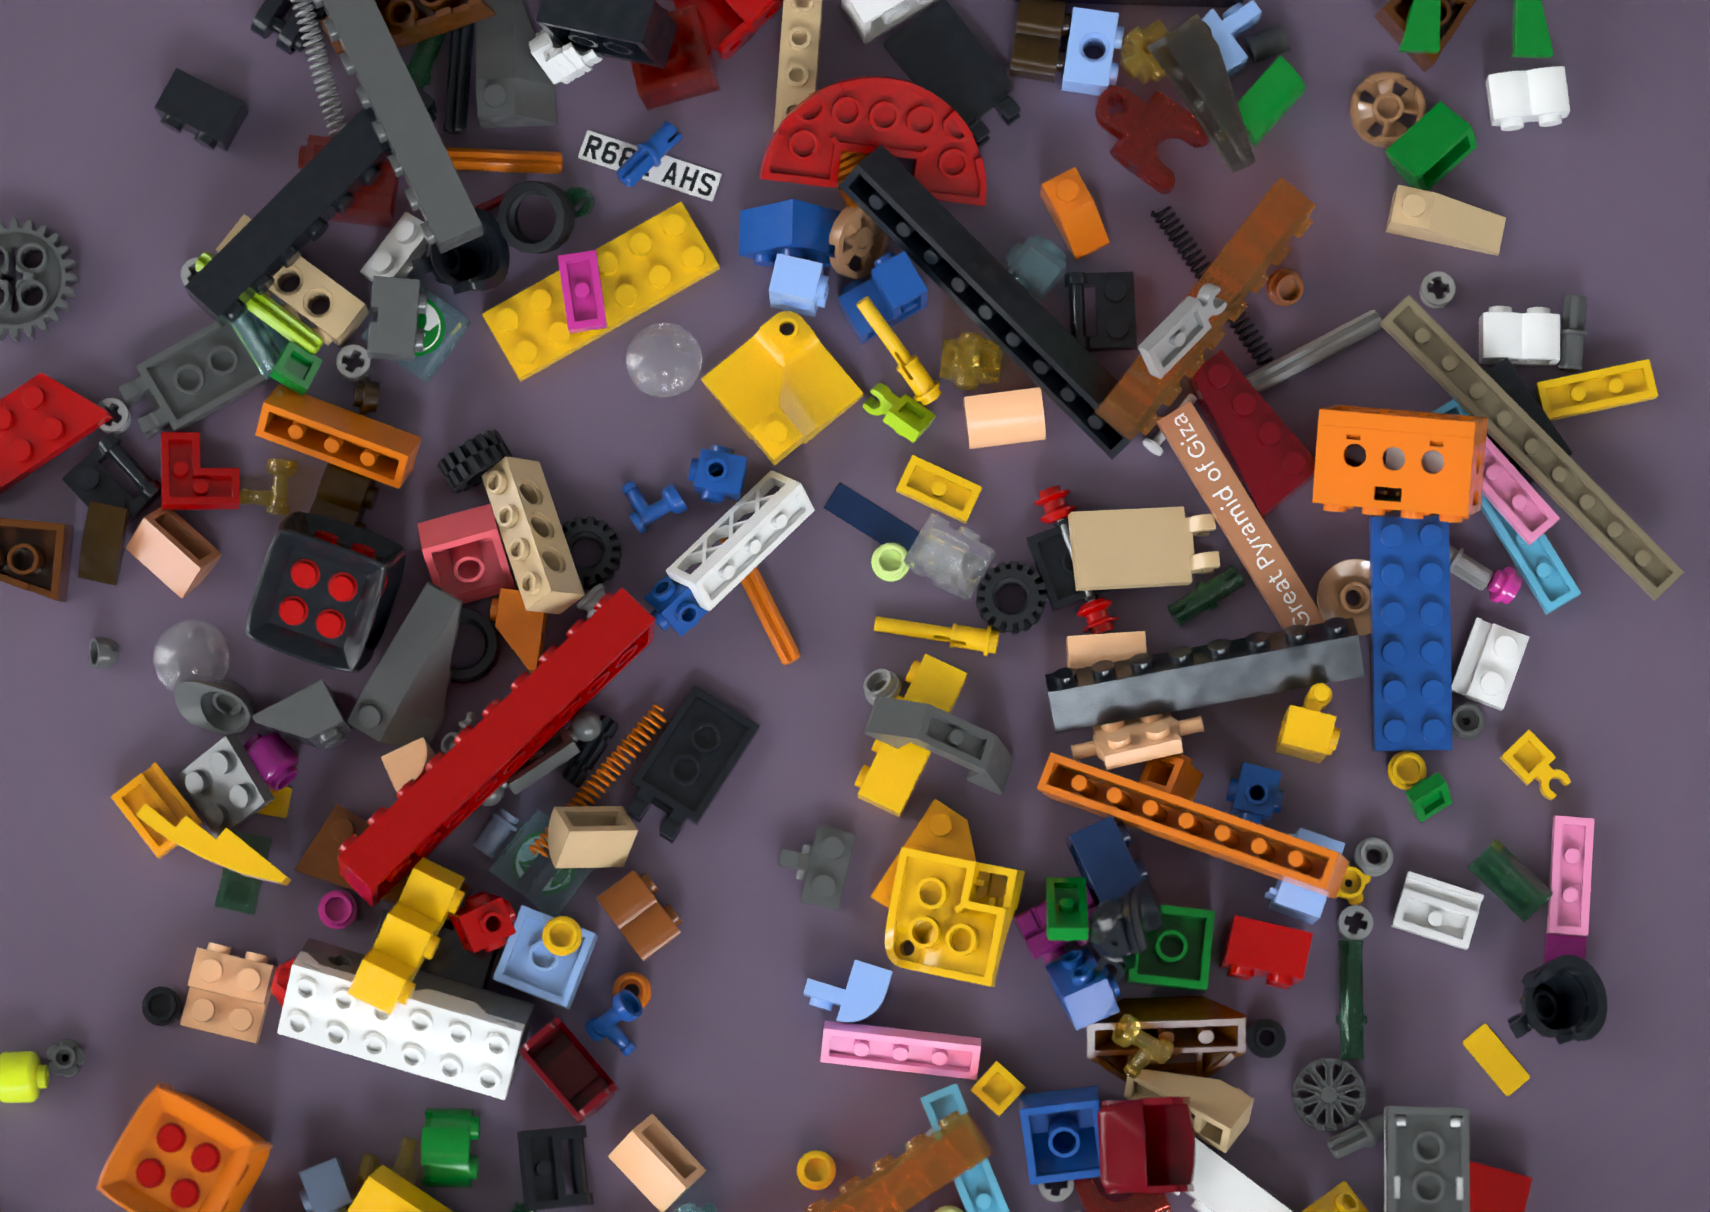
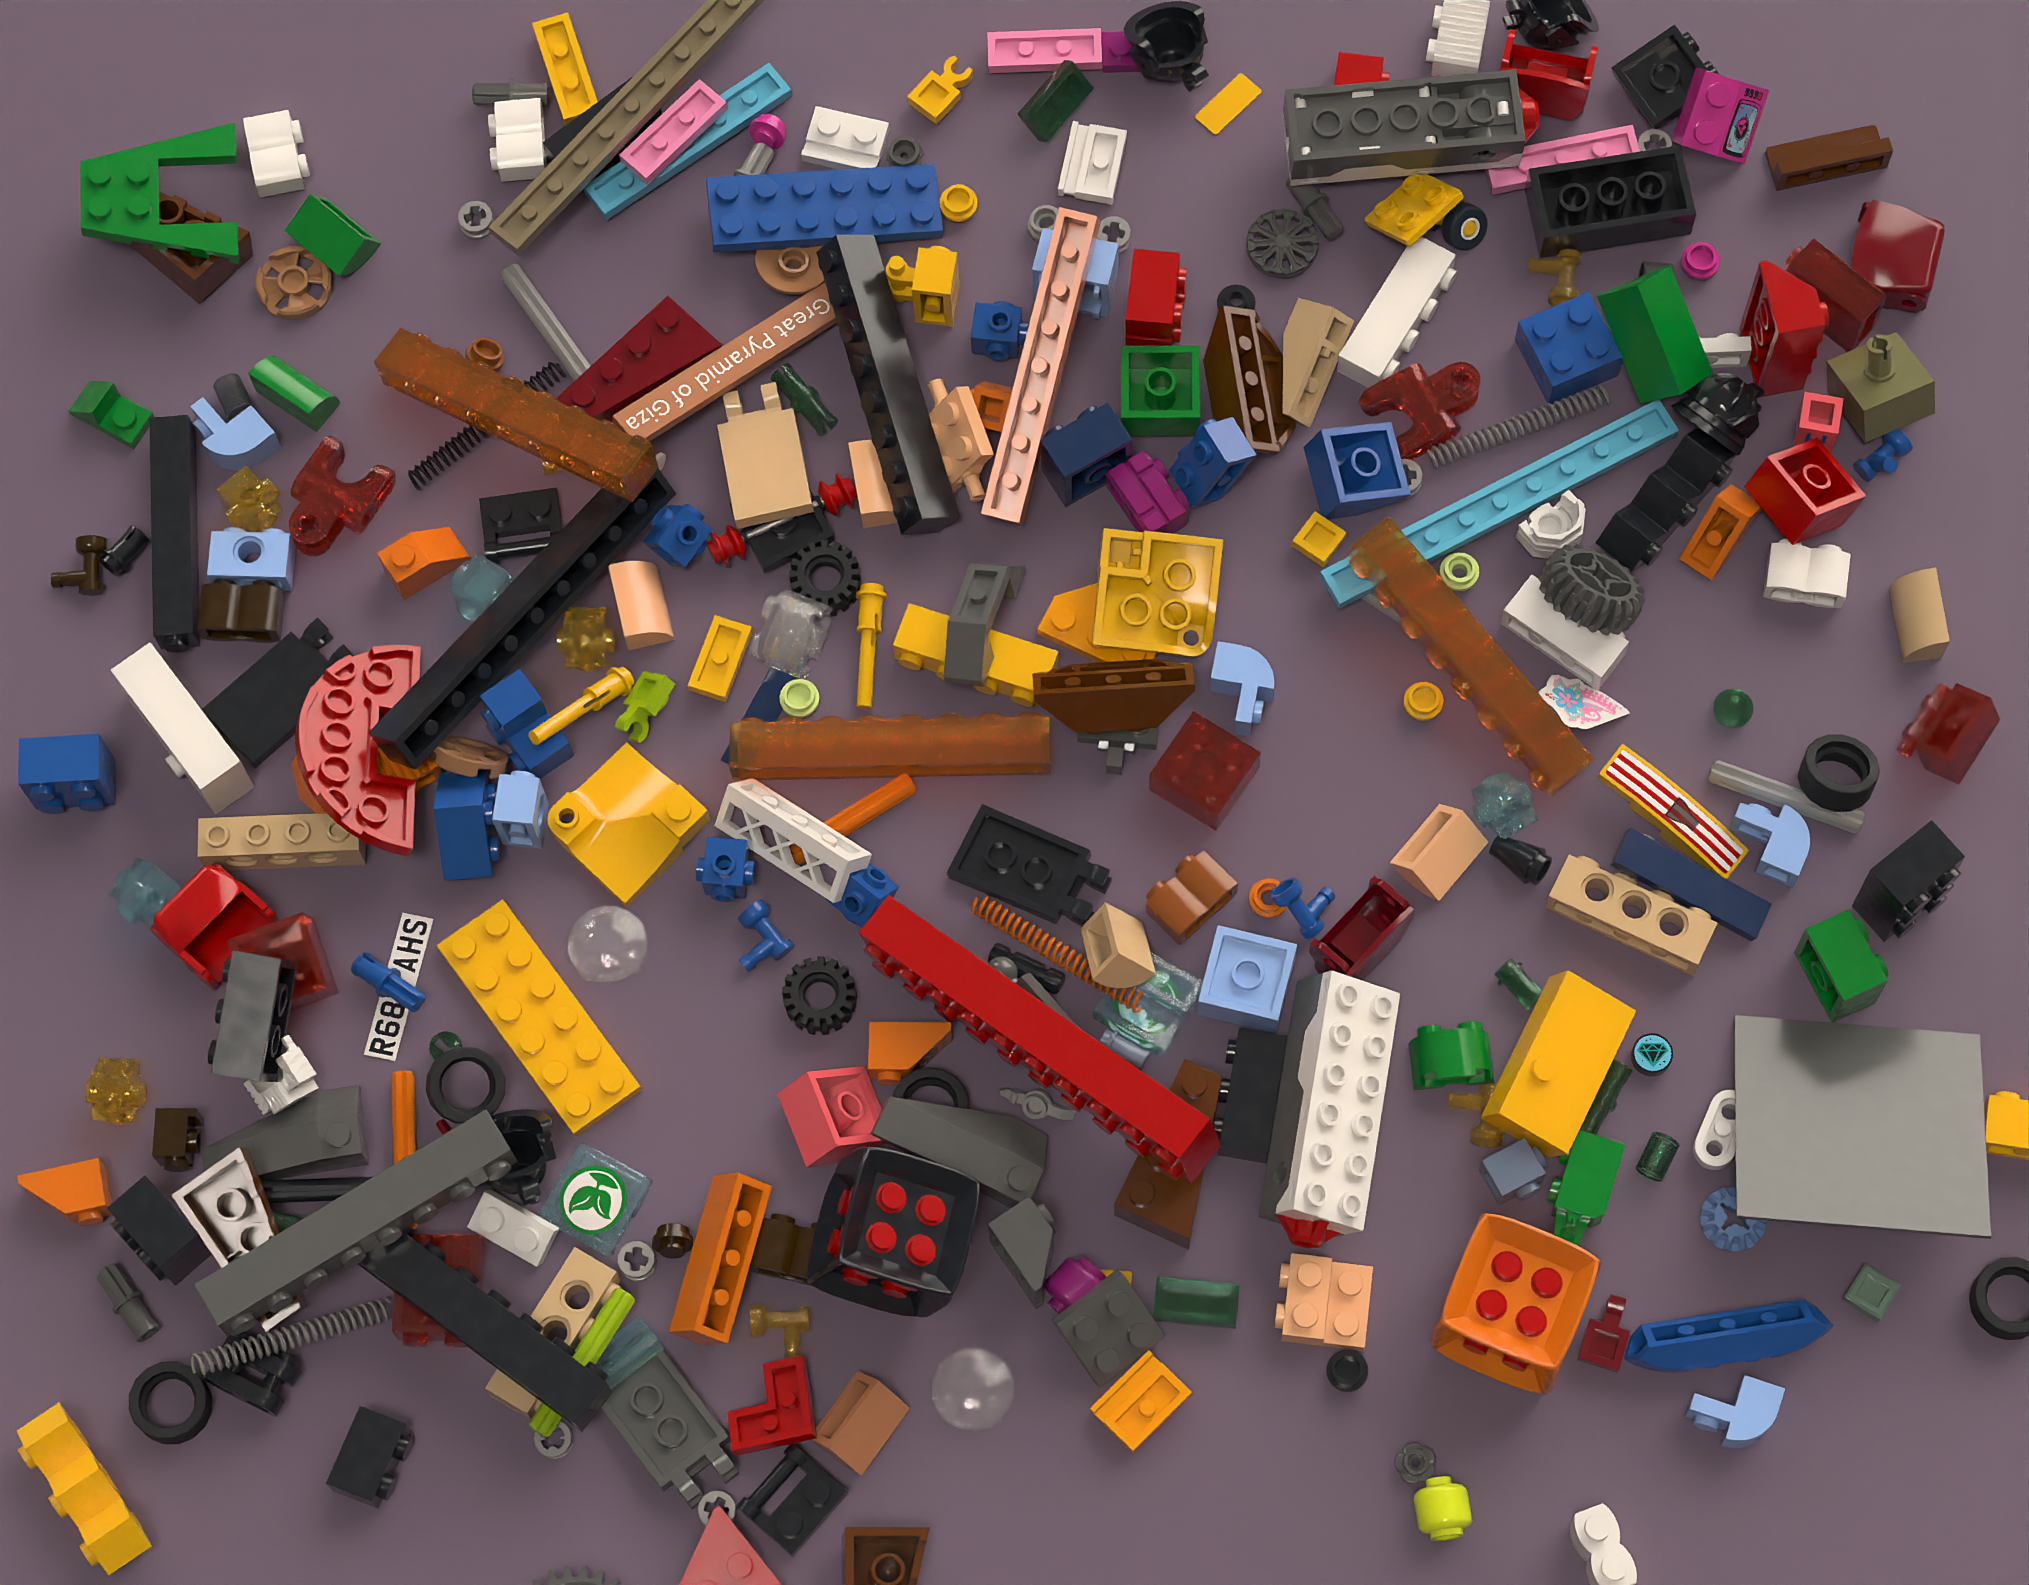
camera: 95 degrees left, 10 degrees down
(102, 652) = (979, 1493): dark grey hinge -> none
(103, 542) = (858, 1497): dark brown slope -> none
(214, 706) = (1024, 1353): dark grey cap -> none
(226, 850) = (1177, 1312): yellow slope -> none
(296, 368) = (650, 1311): green plate -> none
(337, 909) = (1222, 1202): dark pink plate -> none
(398, 309) = (589, 1207): dark grey brick -> none
(408, 762) = (1072, 1133): light nougat brick -> none
(408, 936) = (1252, 1093): yellow brick -> none
(472, 460) = (735, 1113): black tyre -> none
(484, 922) = (1222, 1033): red brick -> none
(532, 535) = (809, 1039): tan brick -> none
(543, 1168) = (1463, 955): black plate -> none
(562, 936) = (1225, 952): yellow plate -> none
(582, 291) = (543, 1024): dark pink plate -> none
(590, 599) = (870, 979): light grey bush -> none
(764, 943) = (1204, 770): none -> clear red brick
(825, 644) = (890, 747): none -> clear orange brick
(848, 860) = (1114, 694): none -> reddish brown wedge
(881, 684) = (921, 694): light grey plate -> none
(900, 1050) = (1293, 632): bright pink plate -> none
(1066, 908) = (1138, 478): green slope -> none
(1069, 457) = (678, 534): none -> blue brick
(1121, 926) = (1155, 411): black helmet -> none
(1129, 1032) = (1252, 405): clear yellow piece -> none
(1146, 1145) = (1360, 381): dark red piece -> none
(1181, 330) = (545, 417): light grey plate -> none
(1200, 77) = (280, 438): clear smoke slope -> none
(1351, 1000) = (1189, 230): clear green pin -> none
(1419, 457) = (658, 216): orange piece -> none
(1428, 797) = (982, 179): green plate -> none
(1444, 221) = (405, 221): tan slope -> none

